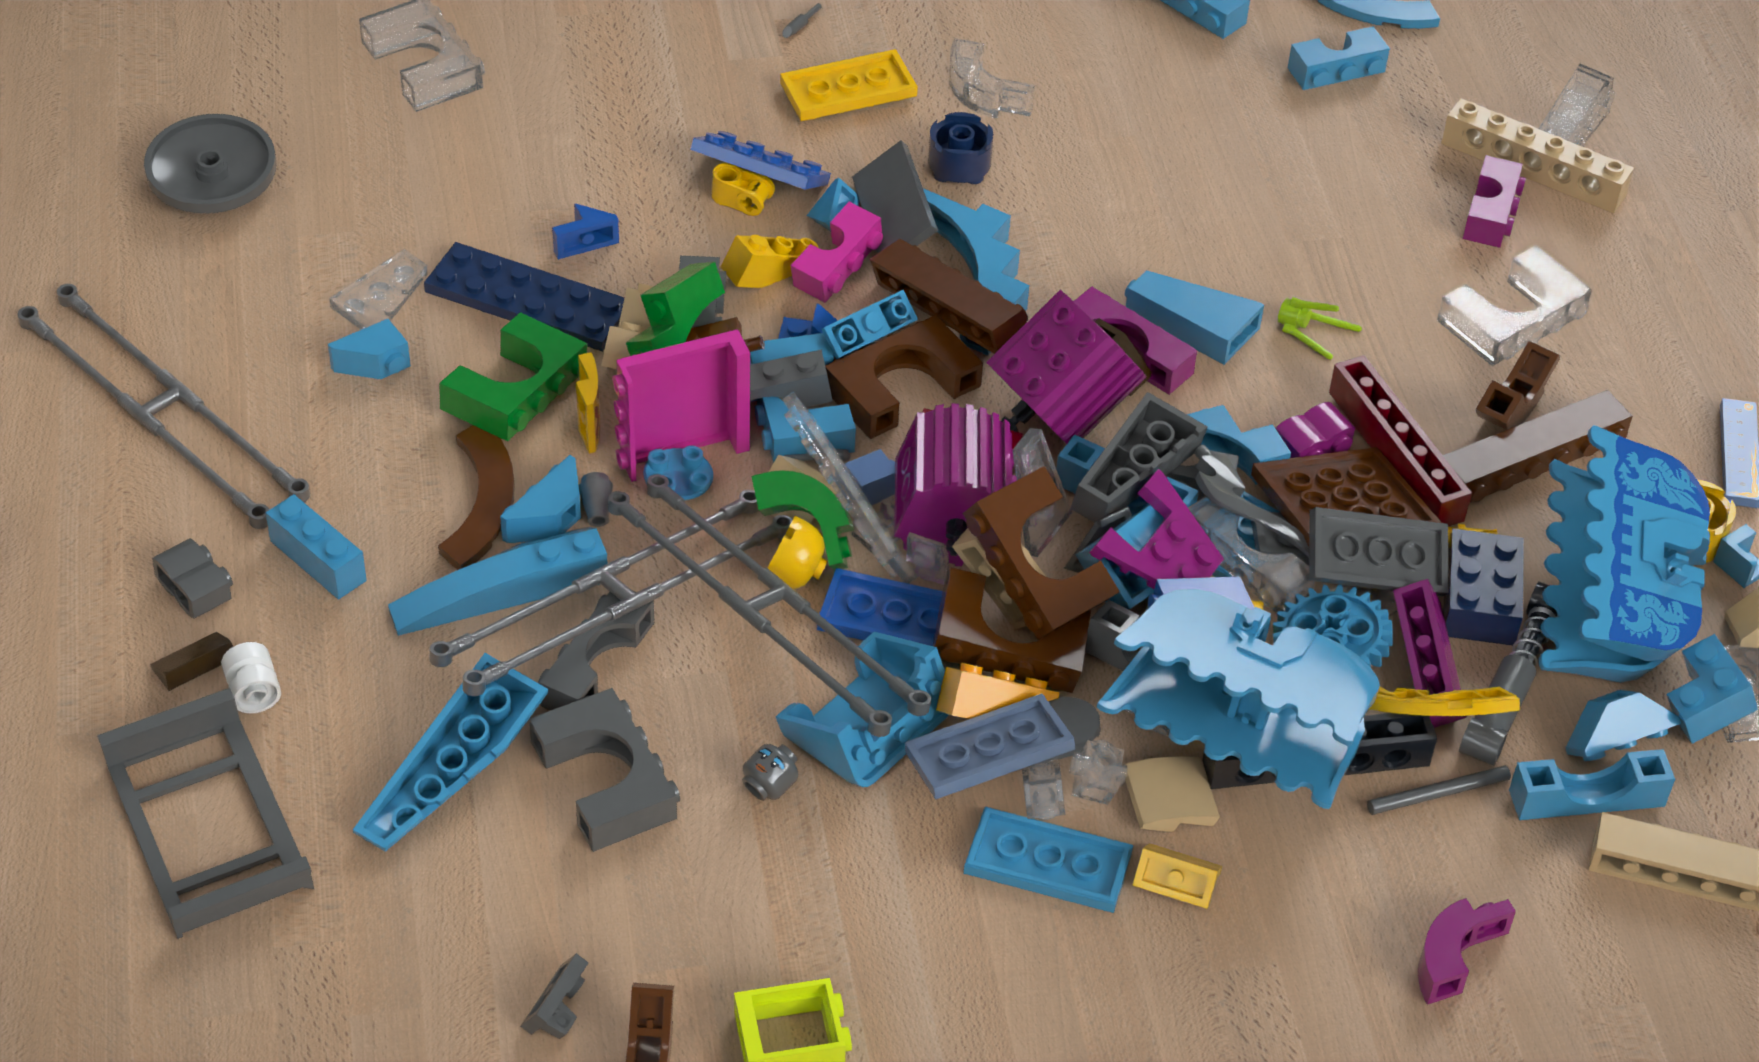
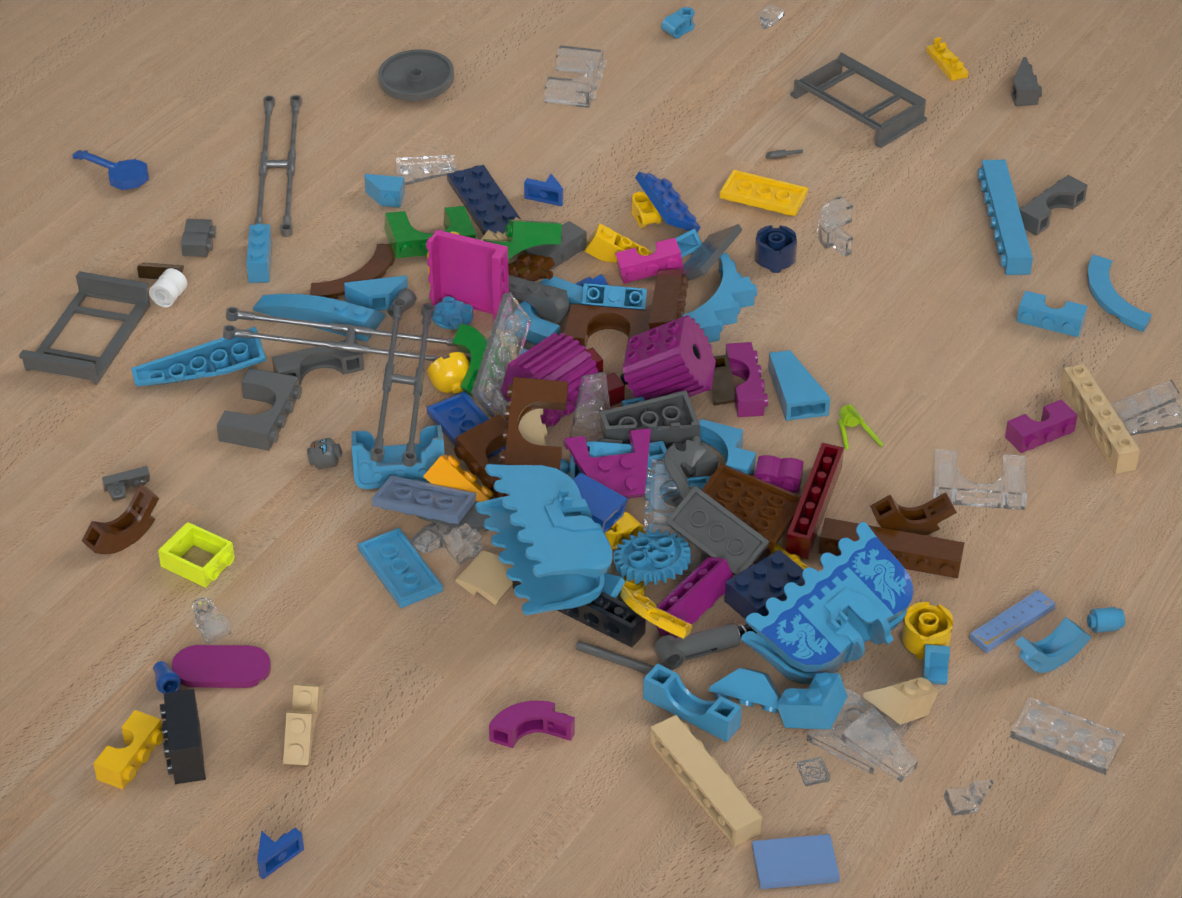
camera: 45 degrees right, 5 degrees down
(1176, 875) = (445, 609): yellow panel -> none

